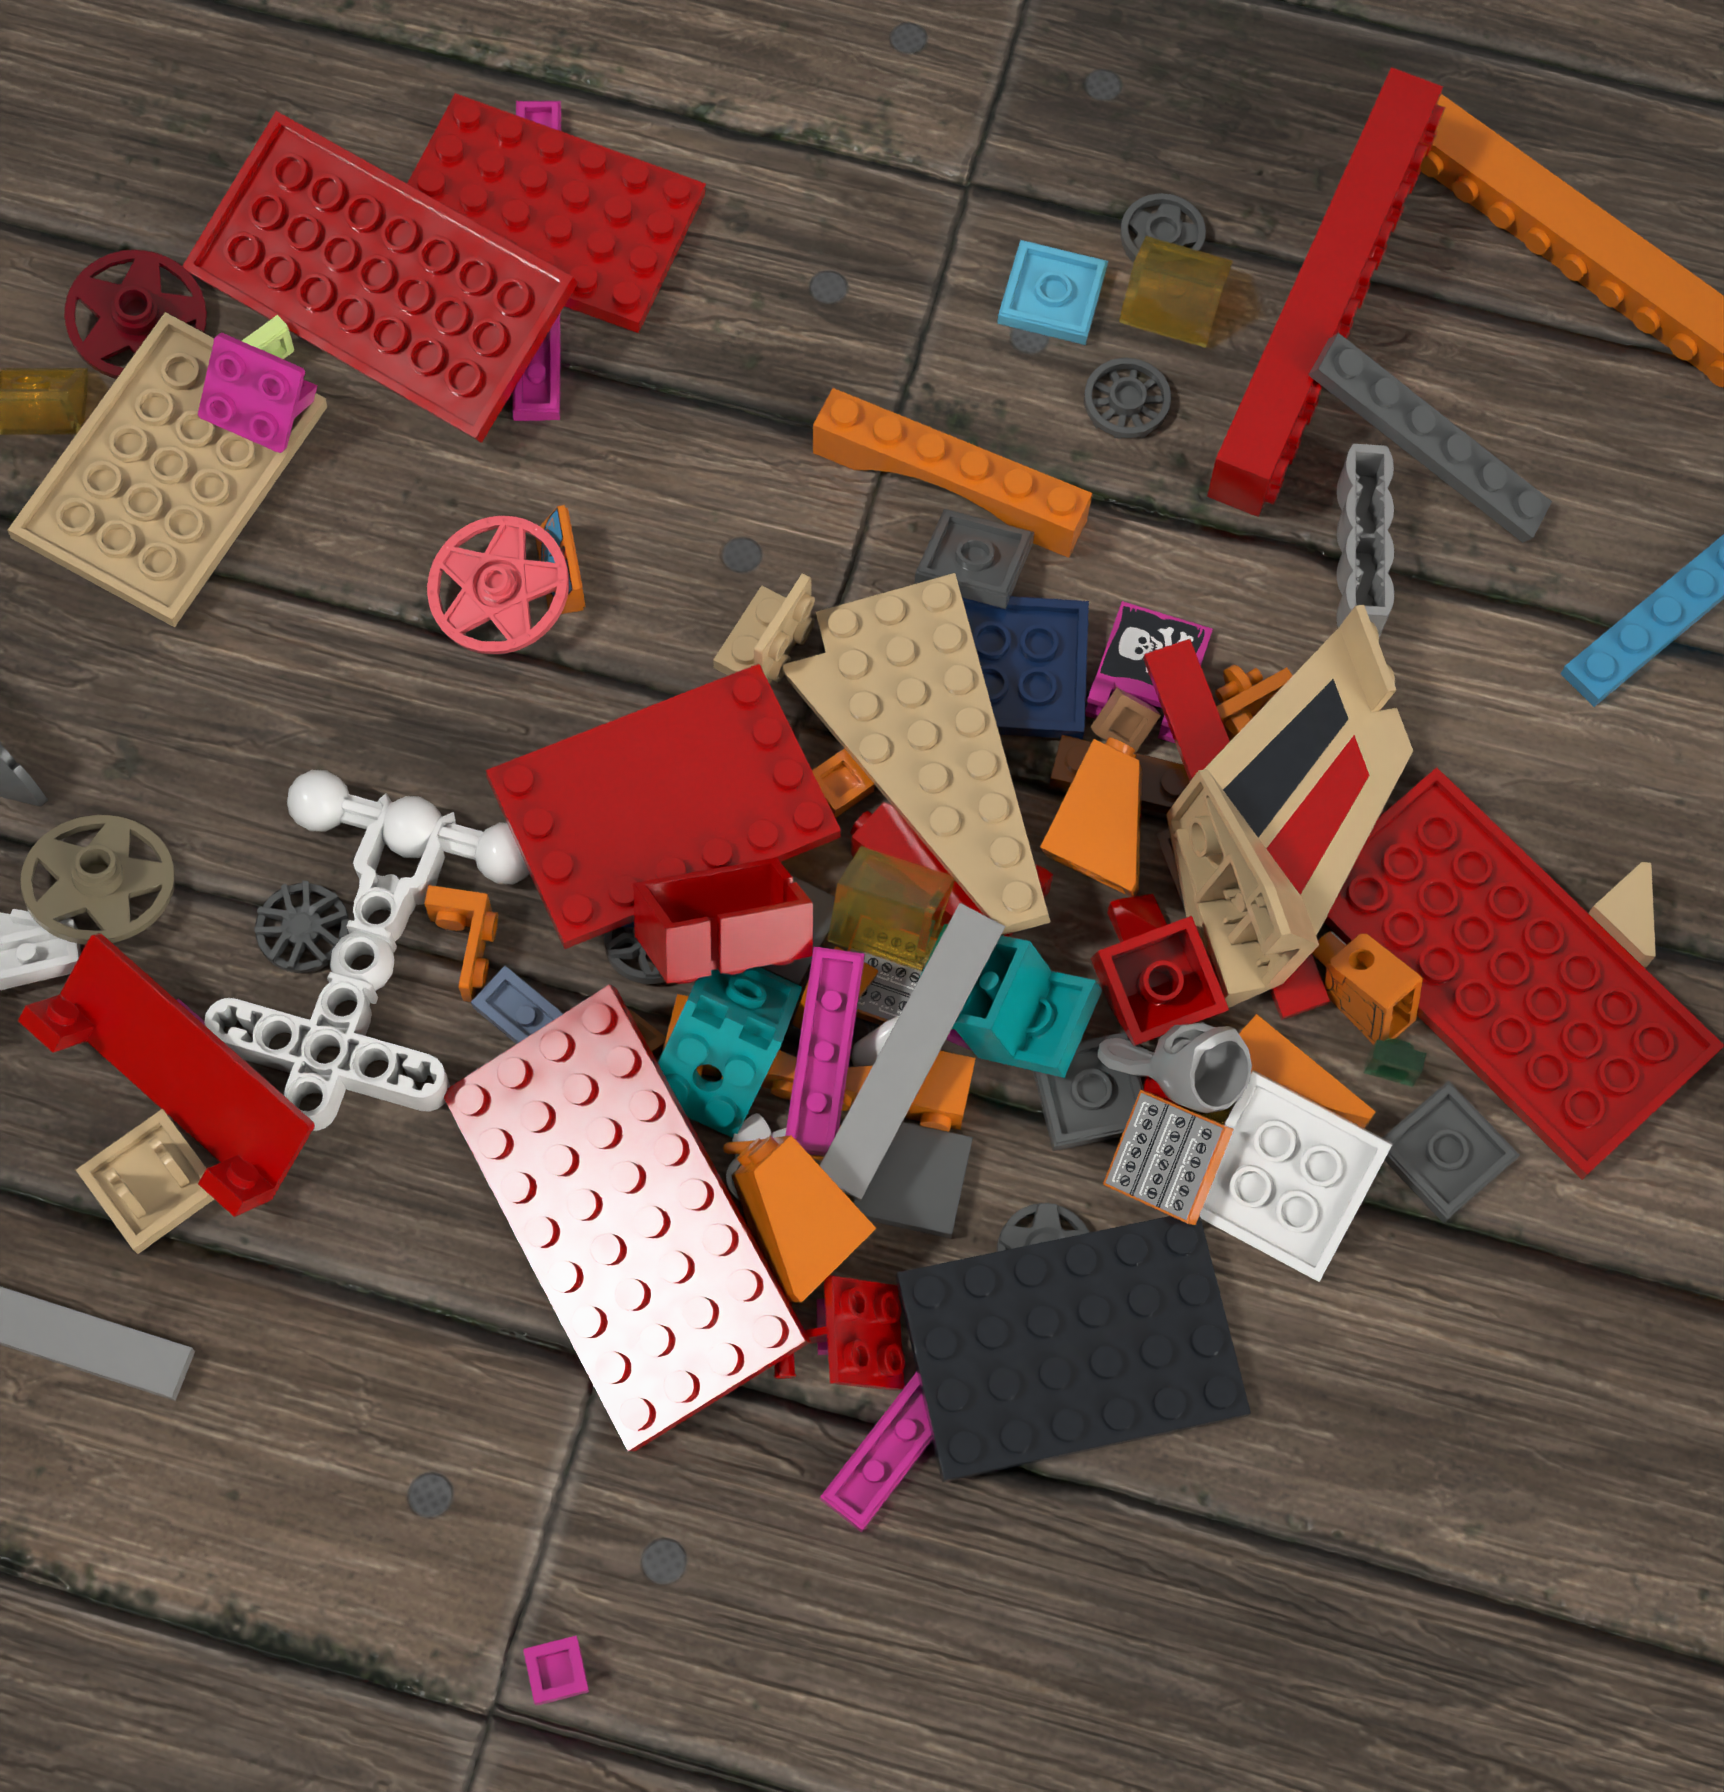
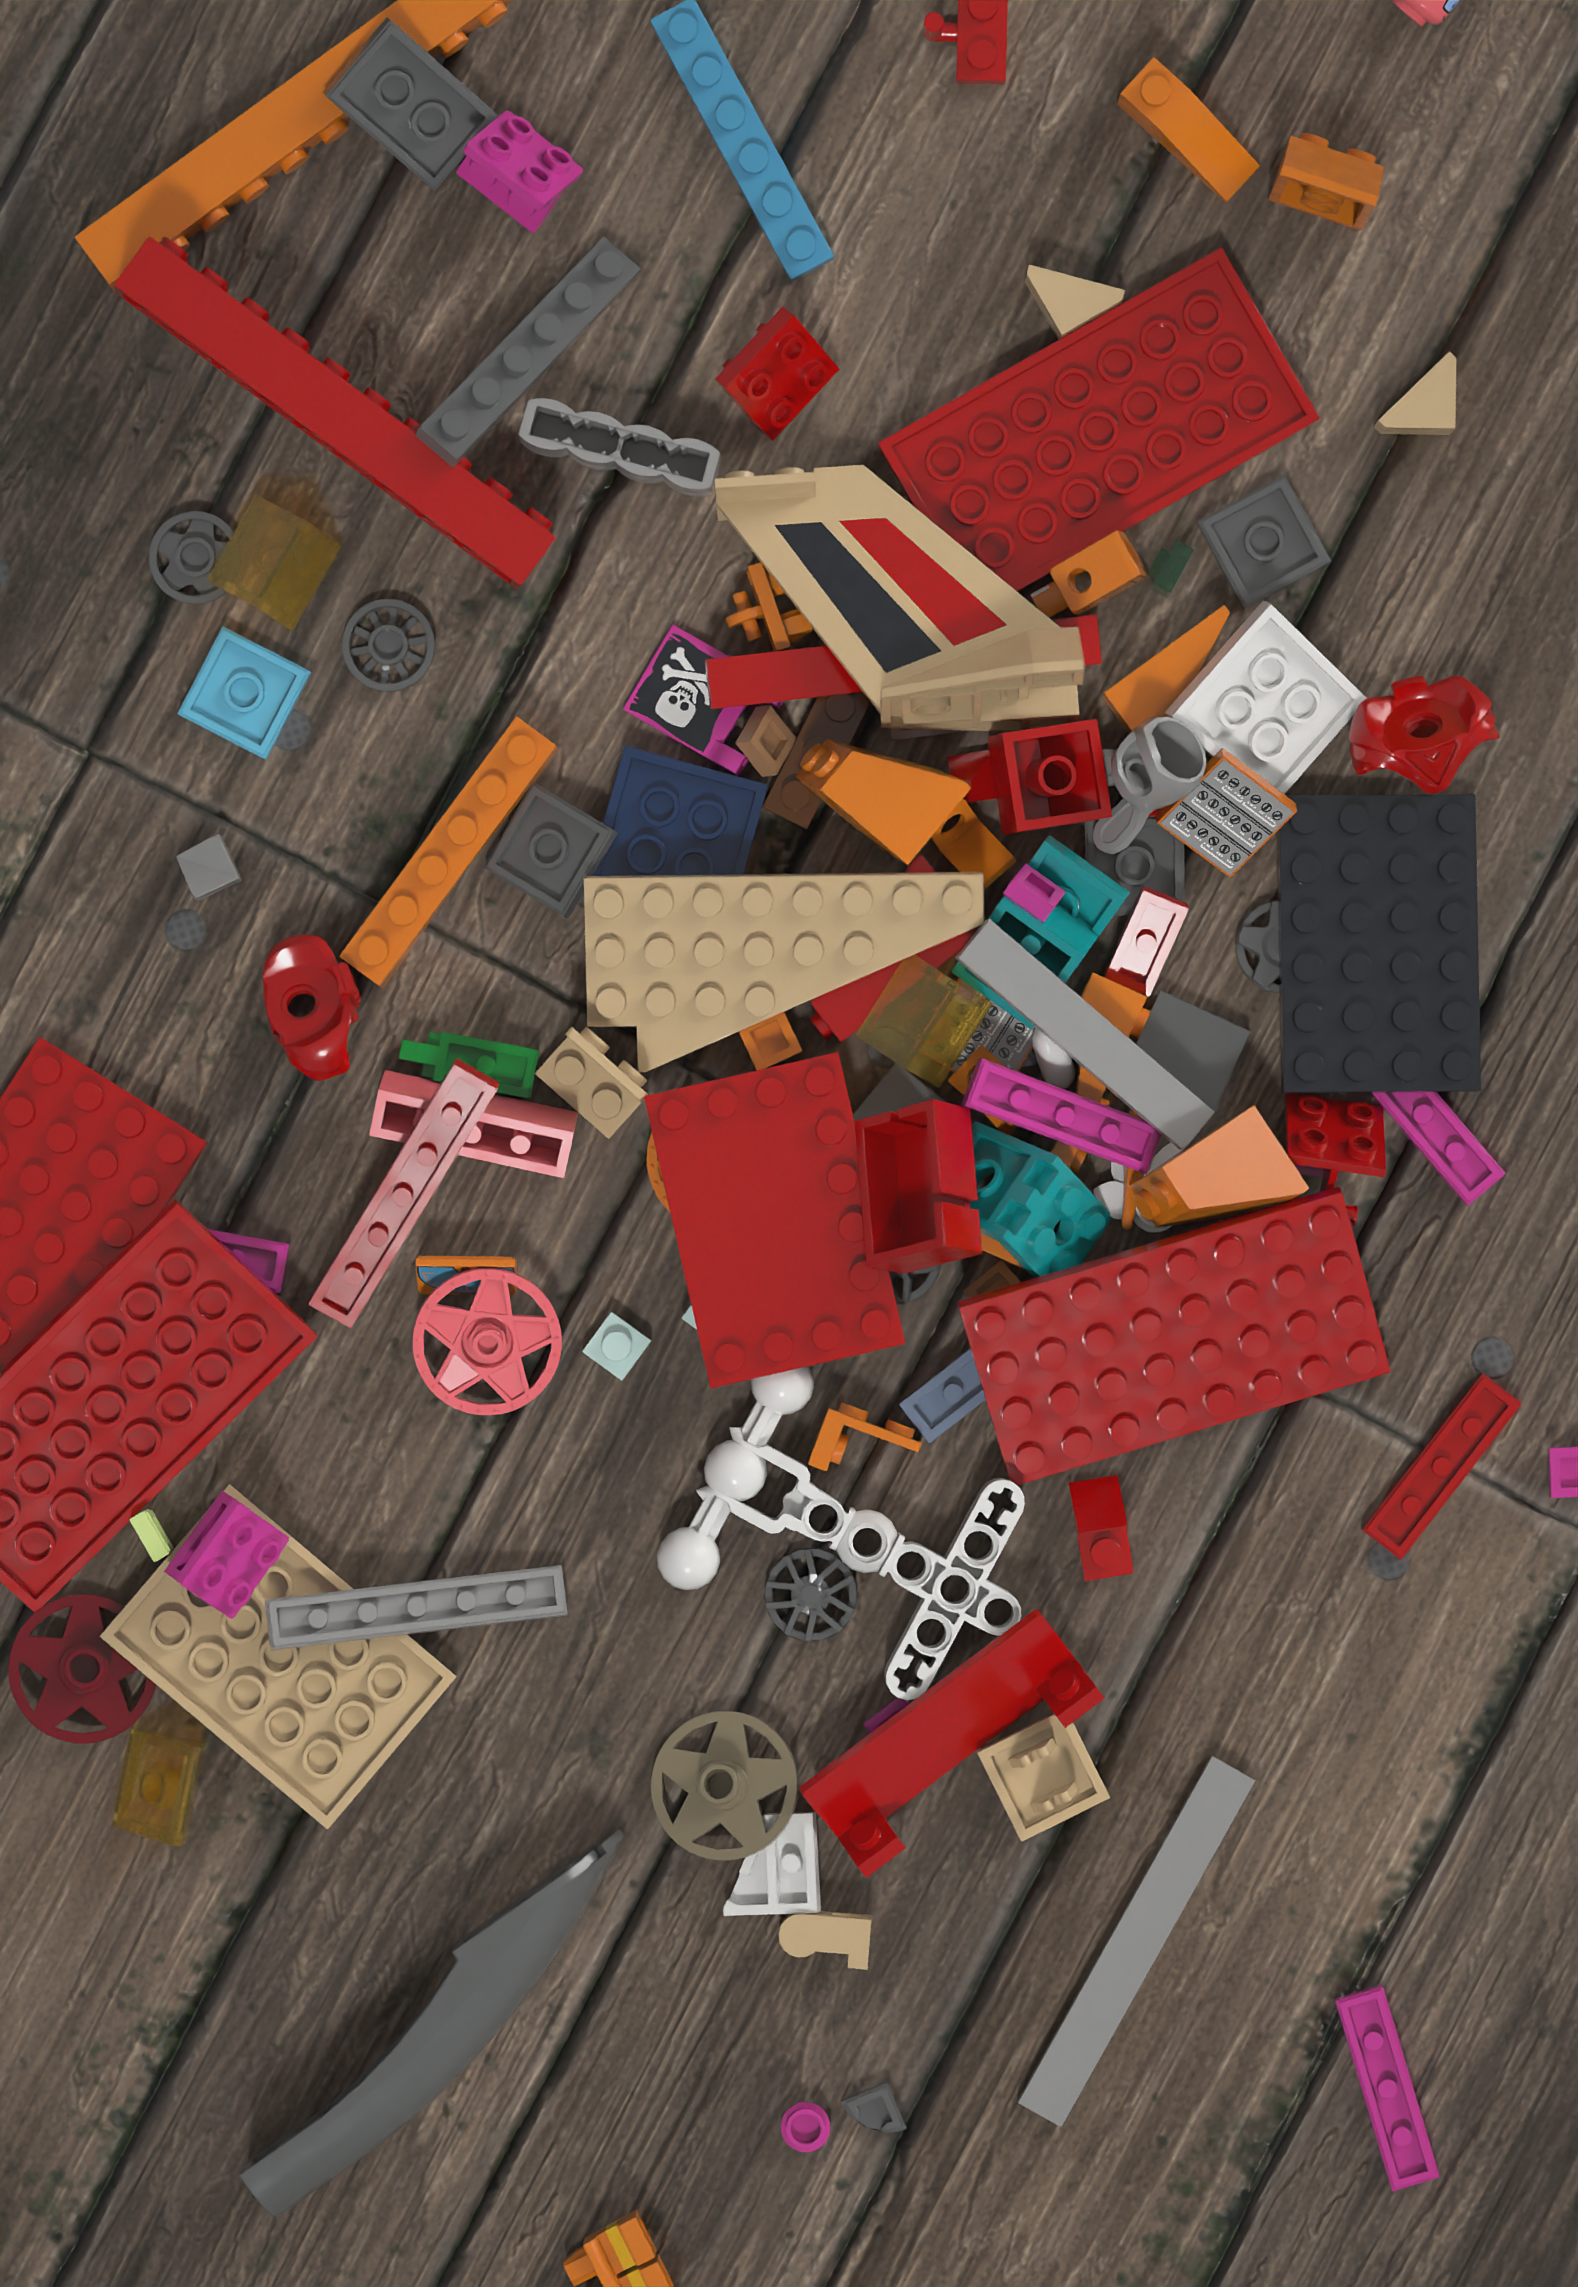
camera: 80 degrees left, 20 degrees up
(233, 573) = (415, 1607): none -> light grey tile
(417, 1189) = (1101, 1527): none -> red slope
(516, 707) = (616, 1346): none -> light aqua plate
(538, 1528) = (1441, 1466): none -> red tile
(625, 478) = (403, 1193): none -> plate
(702, 535) = (506, 1134): none -> coral brick
(750, 377) = (319, 1040): none -> red piece
(760, 533) = (506, 1063): none -> green hinge
(888, 290) = (208, 867): none -> light grey slope
(1019, 1109) = (1146, 940): none -> plate
(1041, 978) = (1034, 892): none -> dark pink tile
(1072, 927) = (972, 846): none -> orange bracket
(1303, 1337) = (1421, 730): none -> red piece
(1475, 661) = (777, 373): none -> red plate
(1590, 416) = (518, 169): none -> dark pink bracket
(1620, 314) = (409, 103): none -> dark grey tile
(1632, 1277) = (1427, 406): none -> tan slope

